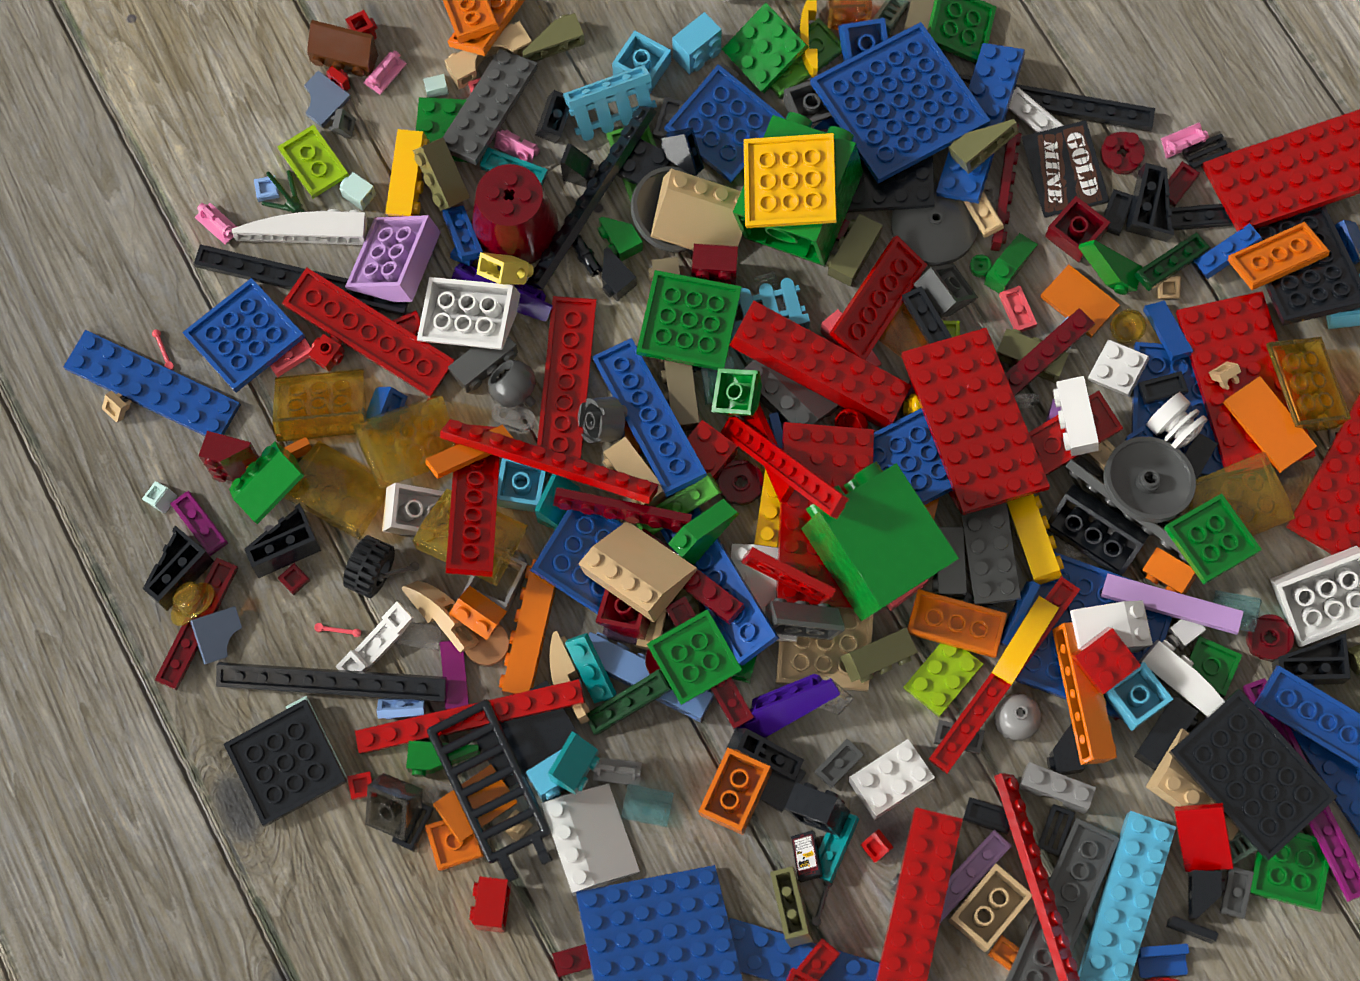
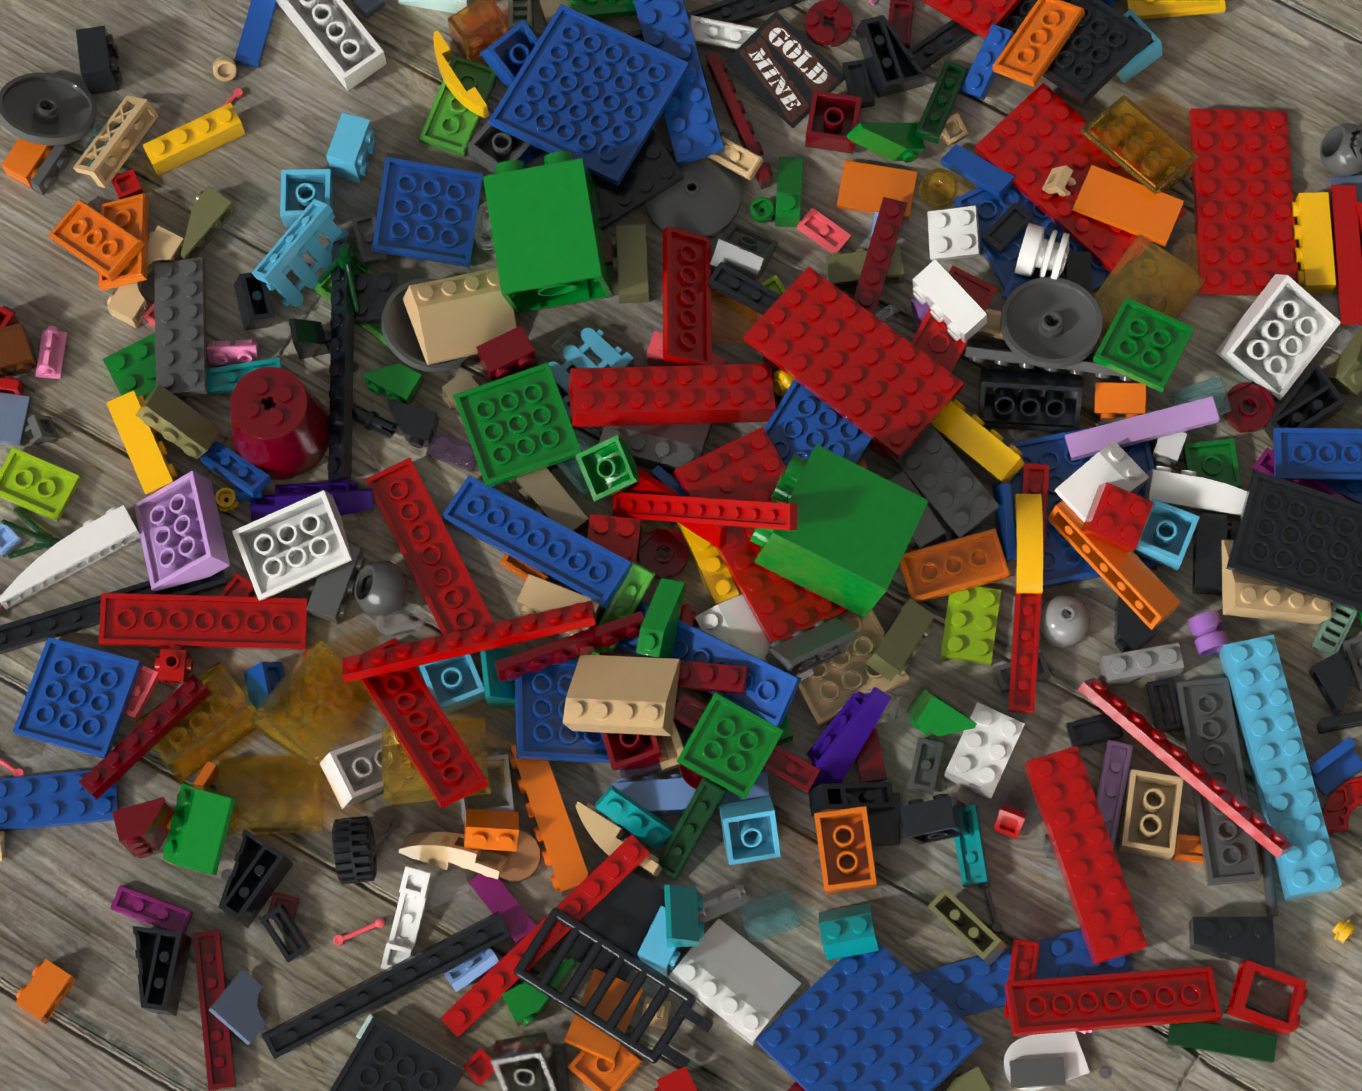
camera: 30 degrees left, 0 degrees up
(86, 535) = (44, 990): none -> orange brick
(159, 497) = (94, 908): light aqua slope -> none
(190, 601) = (196, 991): clear yellow piece -> none
(272, 392) = (144, 737): none -> dark red plate
(290, 597) = (294, 928): none -> black tile
(357, 191) = (100, 488): light aqua brick -> none
(435, 86) = (111, 338): light aqua slope -> none
(439, 248) = (220, 497): none -> yellow plate
(458, 456) = (375, 690): orange tile -> none
(512, 268) = (314, 478): light yellow torso -> none
(602, 419) = (493, 571): dark grey brick -> none
(630, 312) = (452, 451): none -> clear purple plate
(637, 124) = (346, 261): none -> dark green plant
(671, 731) = (749, 830): none -> medium azure brick
(683, 150) = (405, 261): black slope -> none
(698, 853) = (848, 931): none -> teal slope
(728, 539) = (687, 615): none -> red plate
(765, 48) = (421, 114): green plate -> none
(788, 575) = (772, 614): red tile -> none
(790, 180) = (541, 231): yellow plate -> none
(799, 733) = (870, 760): none -> dark red tile
(806, 856) = (950, 871): tile -> none
(851, 418) = (731, 430): red hair -> none
(870, 730) = (936, 716): none -> green slope
(980, 144) = (693, 92): olive slope -> none
(1126, 792) = (1208, 632): none -> medium lavender wheel
(1204, 837) = (1304, 629): red tile -> none

